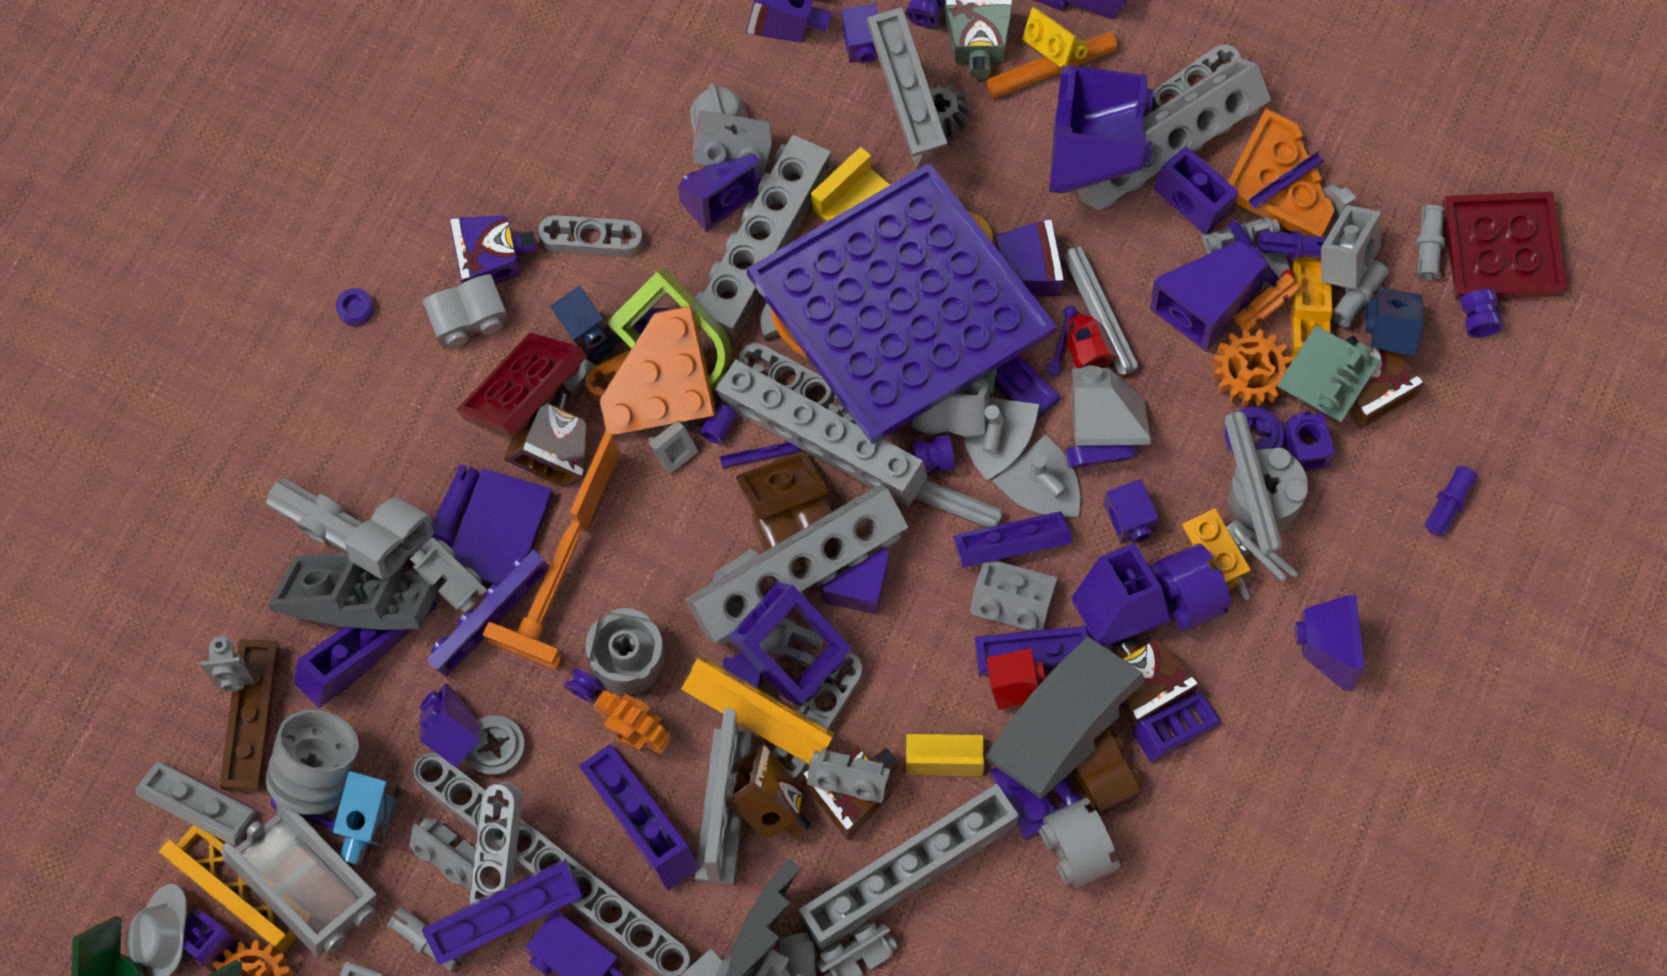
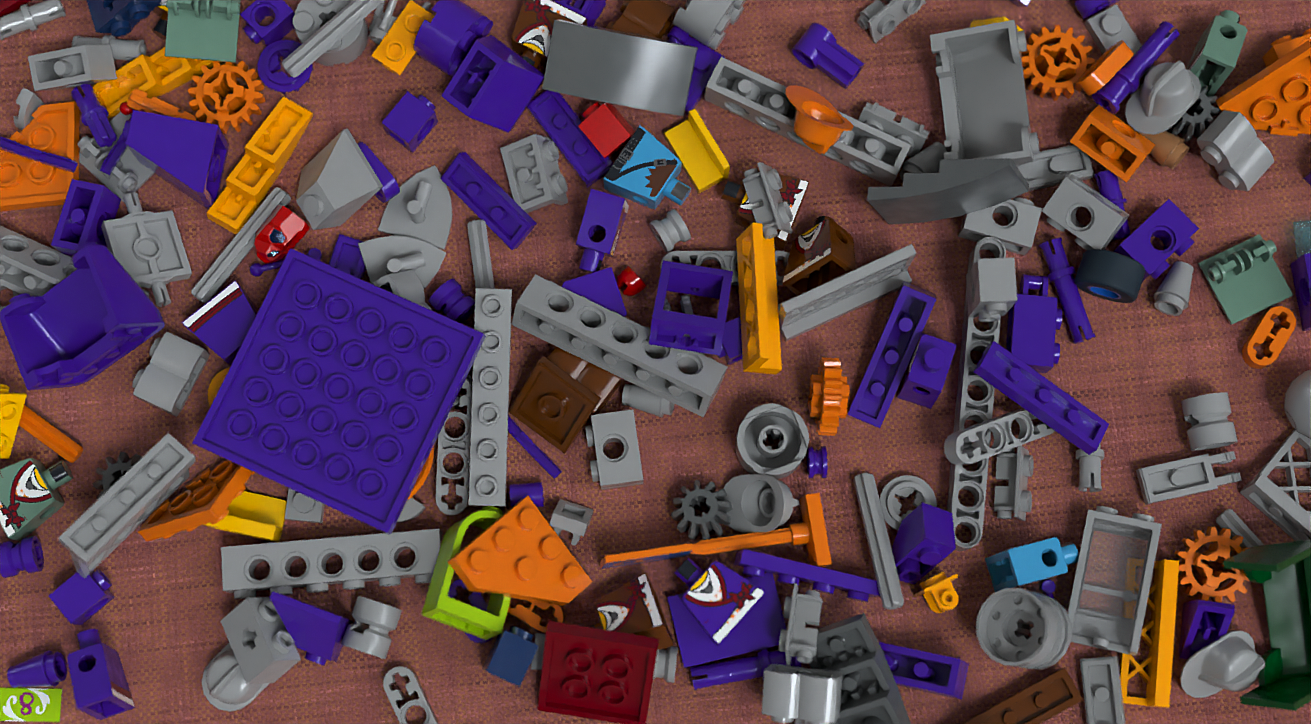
camera: 125 degrees left, 10 degrees up
(395, 711) = (939, 593): none -> light orange hinge
(476, 691) = (878, 541): none -> light grey axle
(494, 450) = (666, 664): none -> light grey wheel
(519, 521) = (717, 597): none -> torso
(577, 607) = (758, 503): none -> light grey piece
(603, 835) = (927, 370): none -> dark purple torso
(606, 546) = (716, 506): none -> dark grey gear
(628, 916) = (991, 288): none -> light grey brick
(688, 238) = (371, 627): none -> light grey wheel
(720, 535) = (618, 428): none -> light grey brick
(857, 623) = (632, 280): none -> red hinge
(878, 148) = (201, 504): none -> orange plate
(882, 683) = (670, 230): none -> light grey wheel
(901, 859) = (816, 119): none -> orange piece
(922, 619) = (601, 213): none -> dark purple torso
(952, 695) = (646, 172): none -> dark azure torso
(976, 932) = (819, 50): none -> dark purple piece
(1013, 192) = (170, 373): none -> light grey brick
(1139, 226) = (148, 247): none -> light grey plate
(1167, 364) = (260, 166): none -> light orange slope

